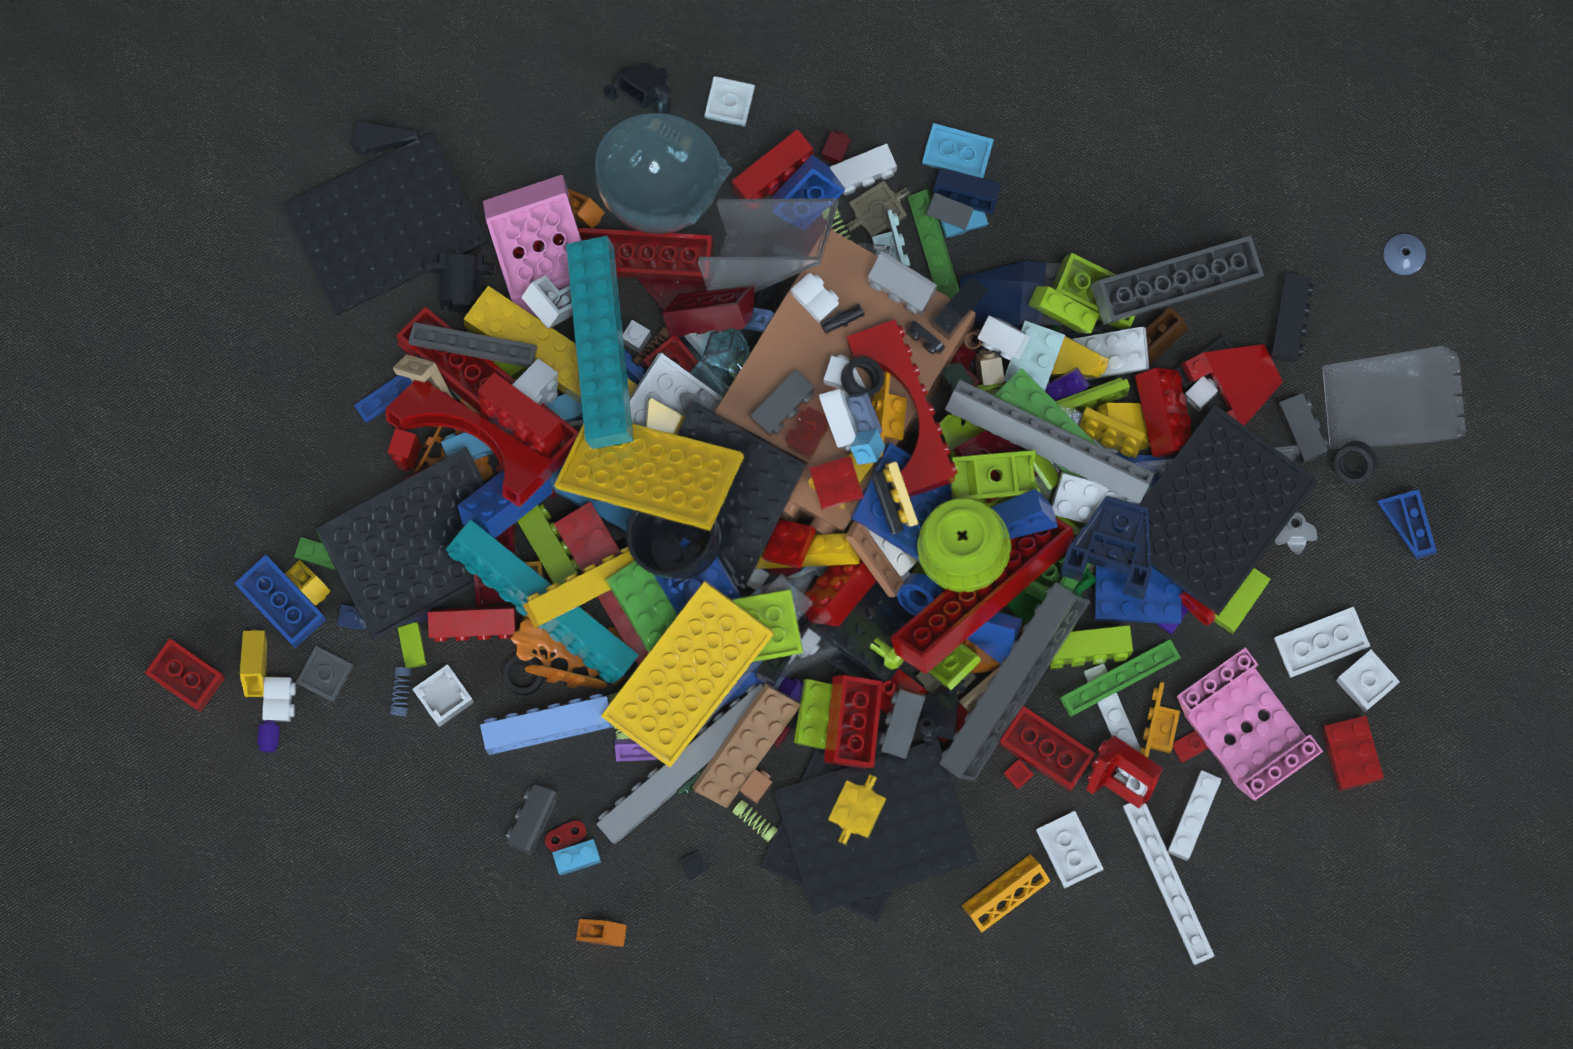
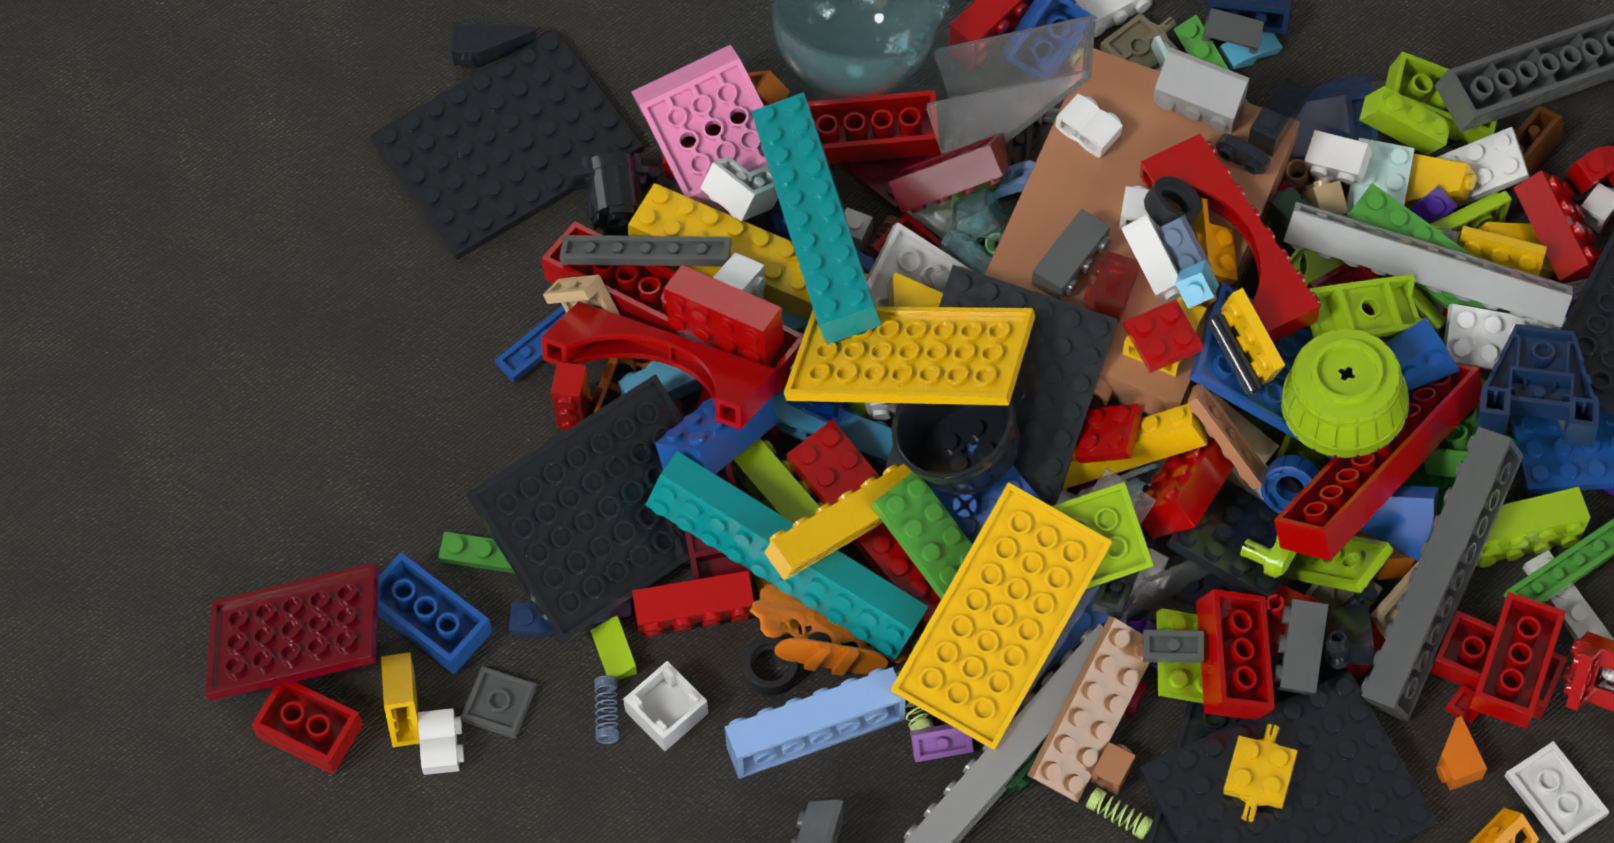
camera: 10 degrees left, 15 degrees down
(181, 606) = (292, 632): none -> dark red plate
(268, 736) = (431, 792): dark purple brick -> none
(307, 582) = (465, 584): yellow slope -> none
(808, 712) = (1173, 646): none -> dark grey plate
(842, 318) = (1129, 146): black pin -> none
(1005, 813) = (1460, 758): none -> orange slope
(1055, 754) = (1517, 660): none -> red brick

